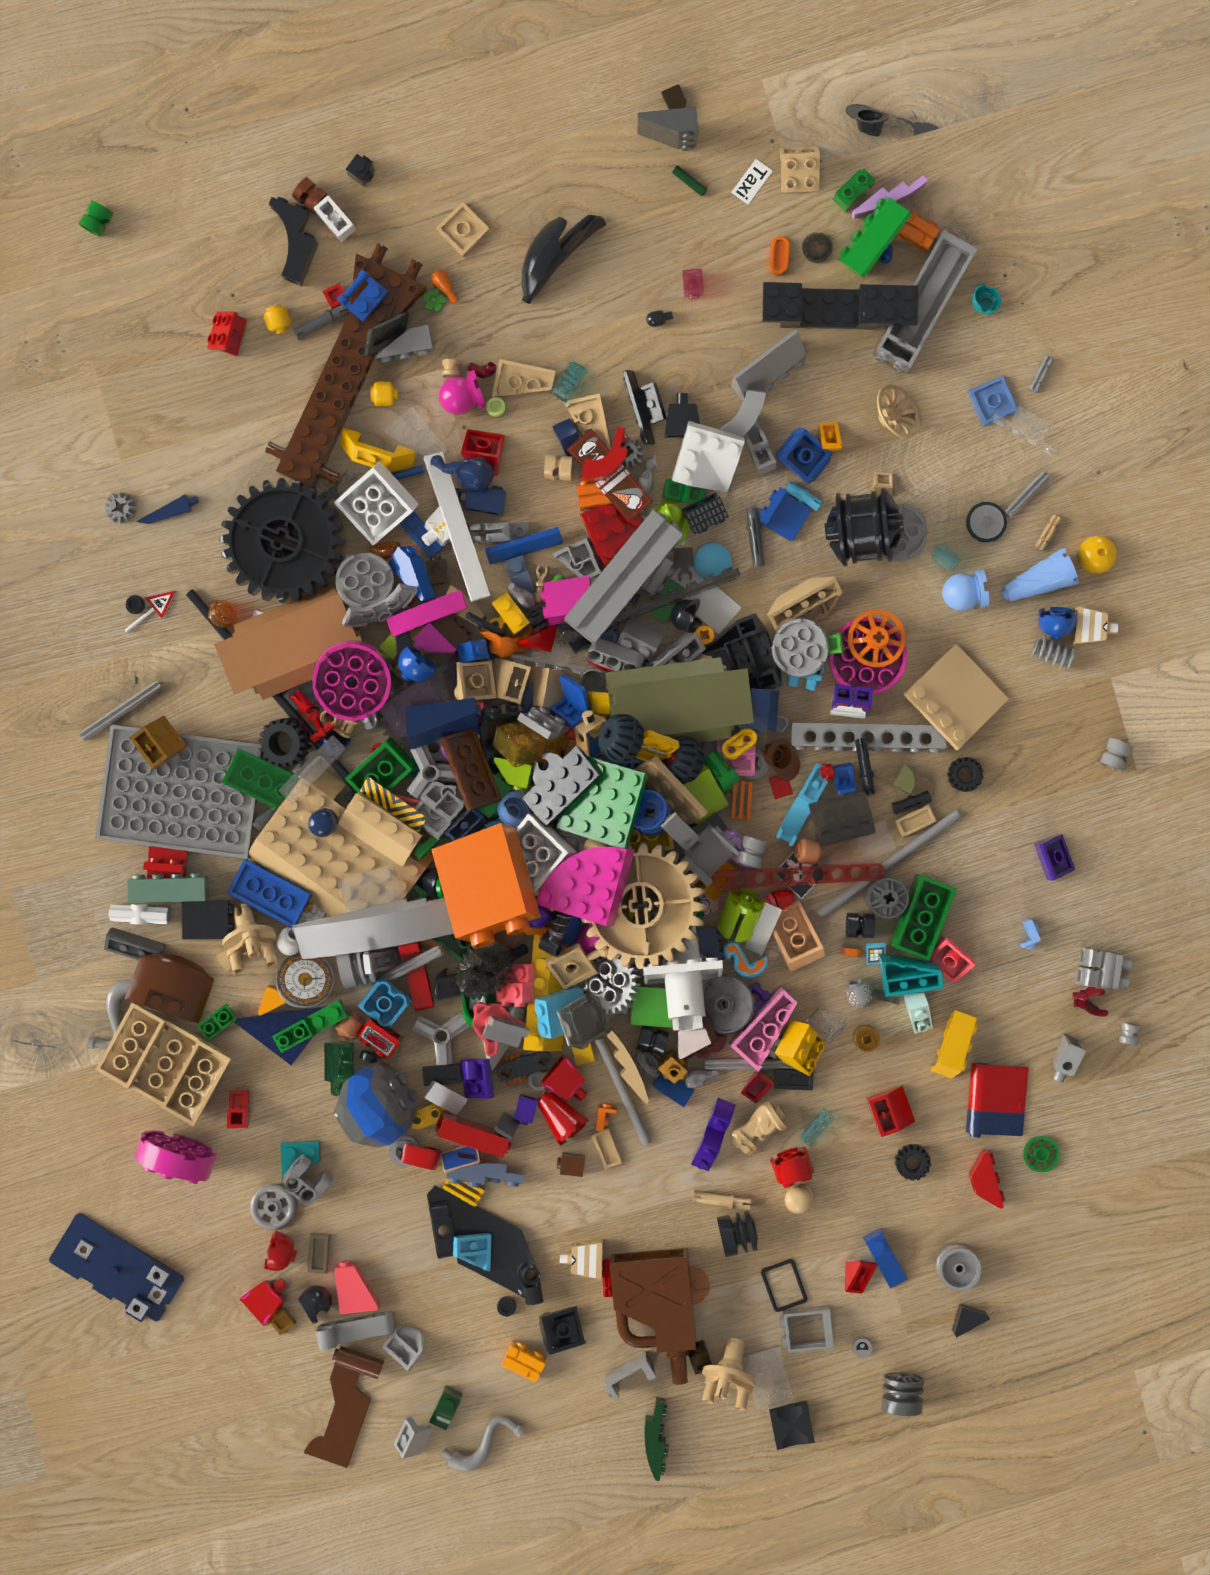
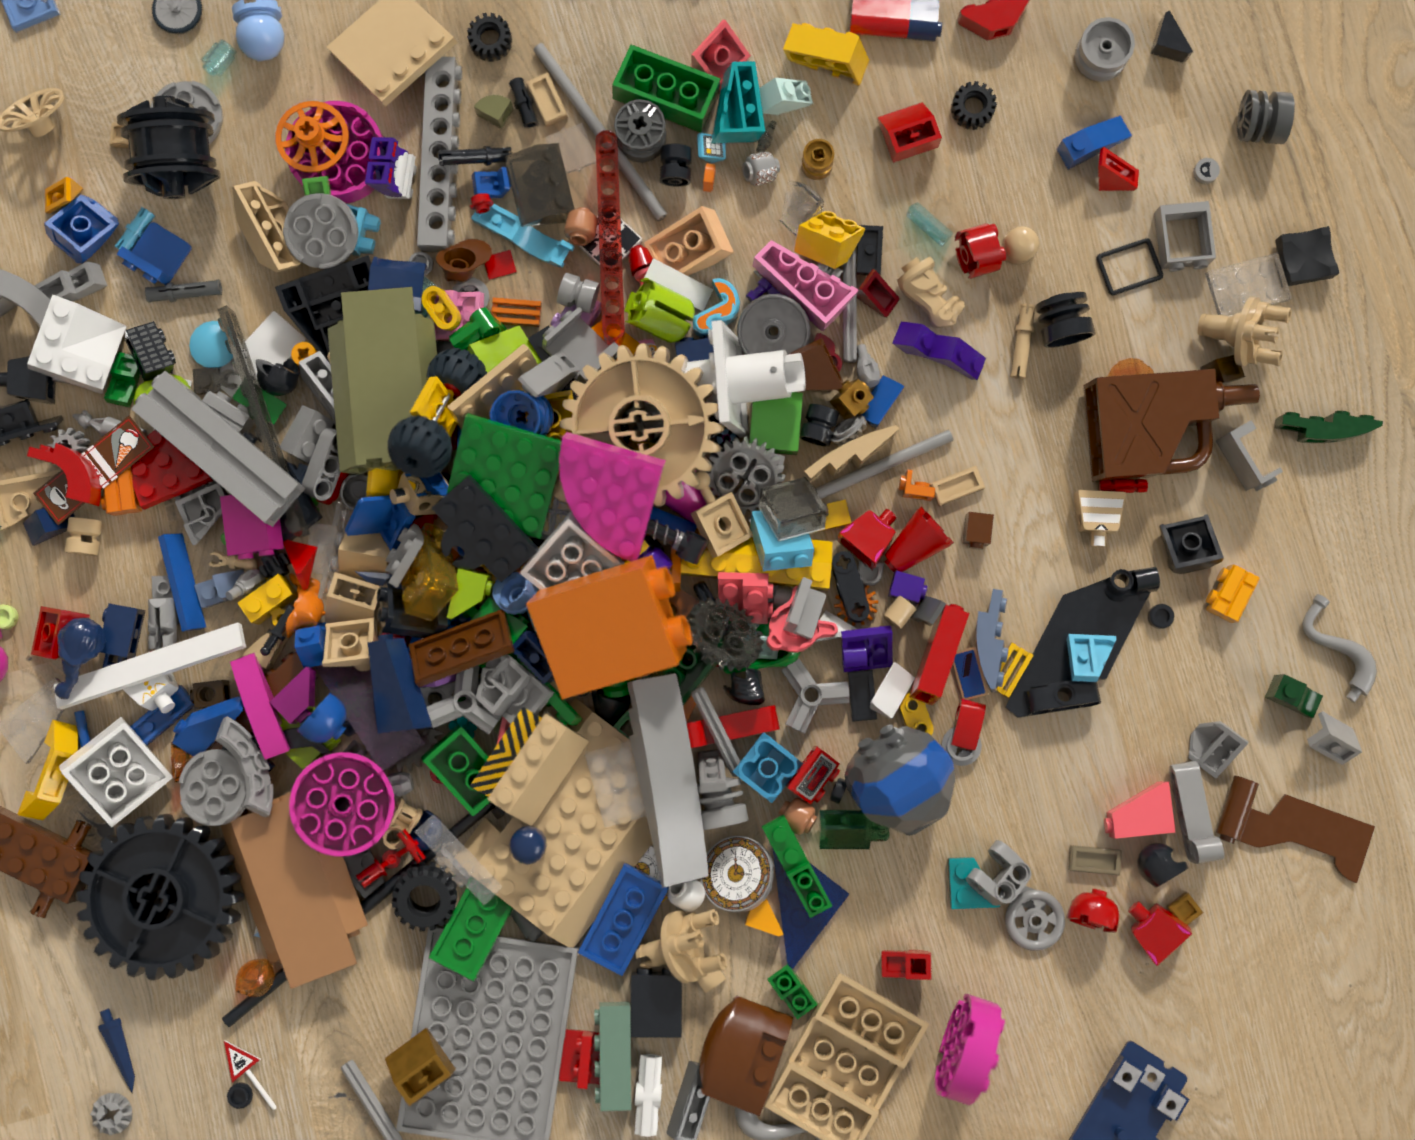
camera: 90 degrees left, 5 degrees down
(504, 1103) = (899, 612): none -> tan piece

